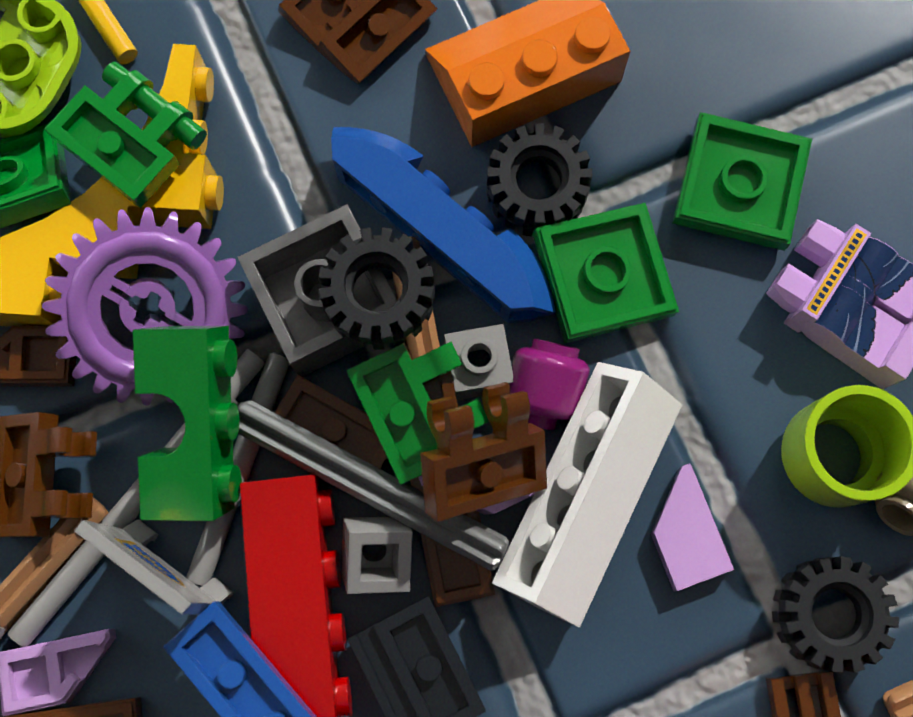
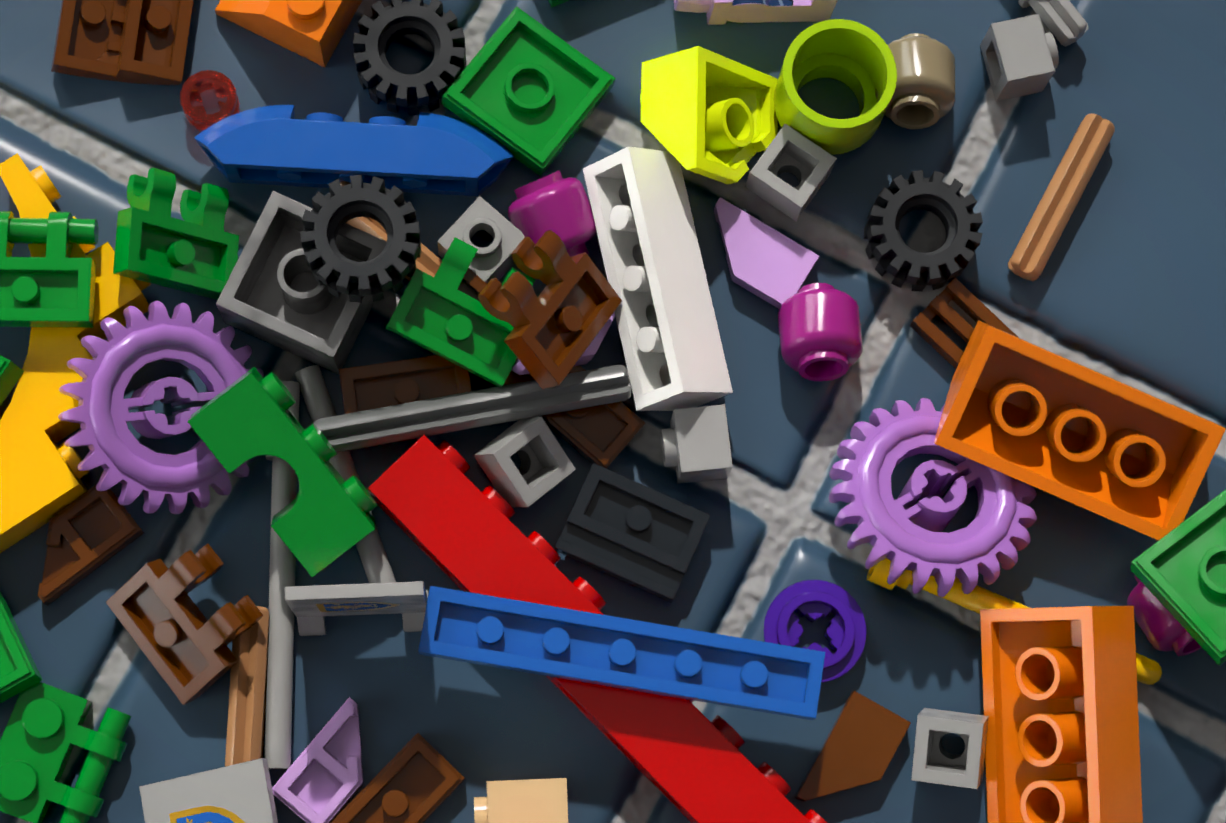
camera: 50 degrees left, 0 degrees up
(245, 196) = (174, 252): none -> green plate
(364, 93) = (205, 81): none -> clear red bush
(521, 645) = (697, 444): none -> light grey plate
(688, 632) = (820, 332): none -> magenta head
(731, 391) = (708, 111): none -> neon yellow slope
(778, 480) = (796, 155): none -> light grey plate

